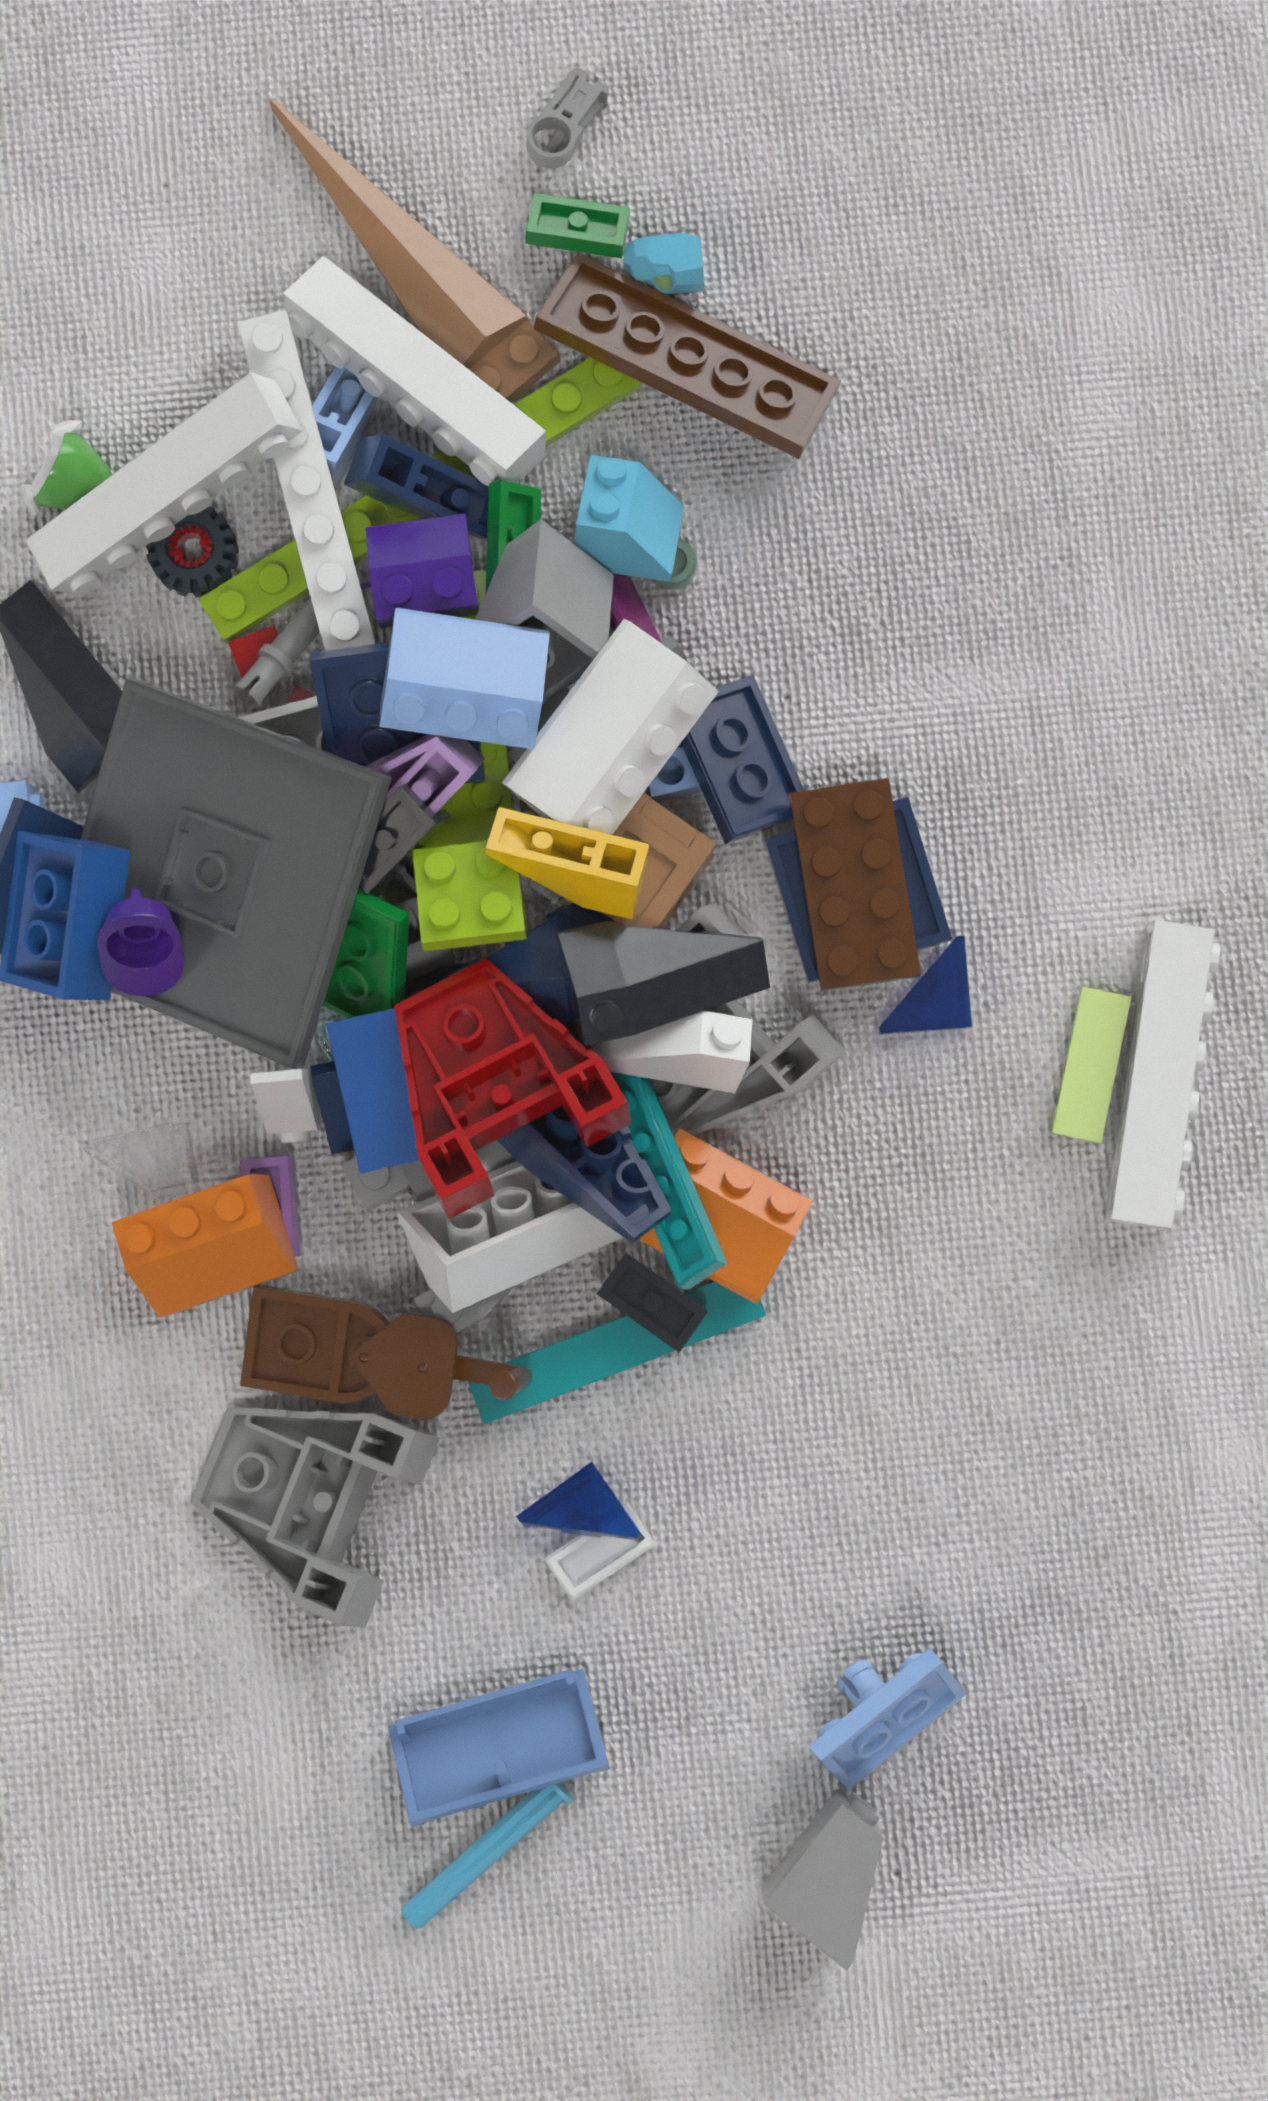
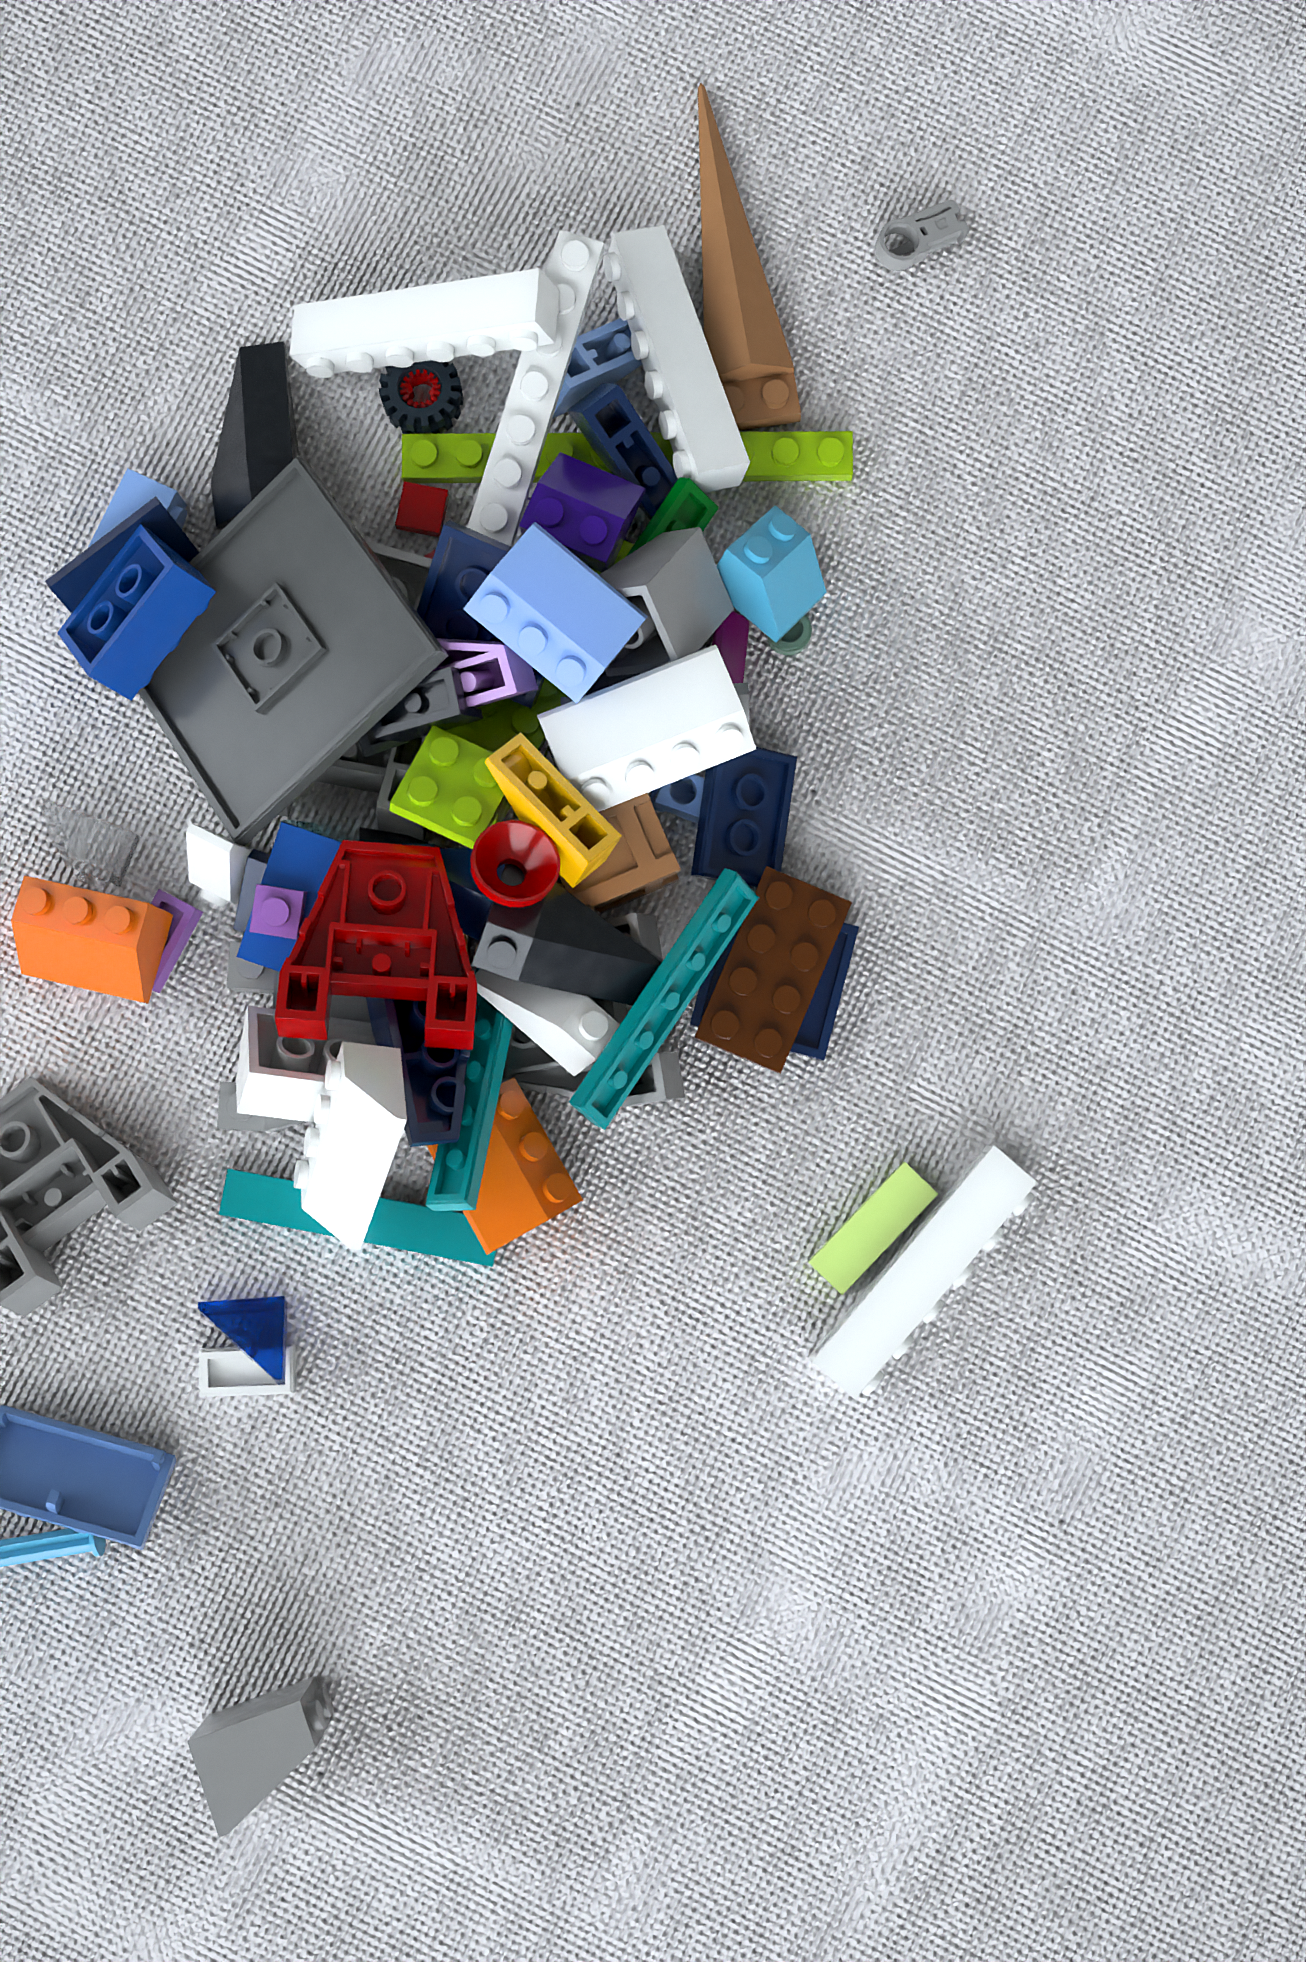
camera: 25 degrees right, 0 degrees up
(67, 472) = (361, 272): bright green hat -> none
(140, 947) = (176, 671): dark purple piece -> none
(278, 659) = (429, 516): light grey pin -> none
(317, 1351) = (121, 1073): reddish brown plate -> none
(371, 959) = (349, 791): green tile -> none
(374, 1107) = (278, 911): none -> medium lavender plate
(570, 909) = (518, 845): none -> red piece
(576, 1272) = (352, 1139): none -> white slope
(577, 225) = (878, 322): plate -> none
(652, 1302) = (405, 1207): black plate -> none
(667, 262) = (930, 393): medium azure rock -> none
(687, 355) = (900, 474): reddish brown plate -> none
(775, 970) = (664, 999): none -> teal tile
(884, 1714) = (385, 1644): light blue plate -> none
(937, 1000) = (783, 1100): clear blue tile -> none

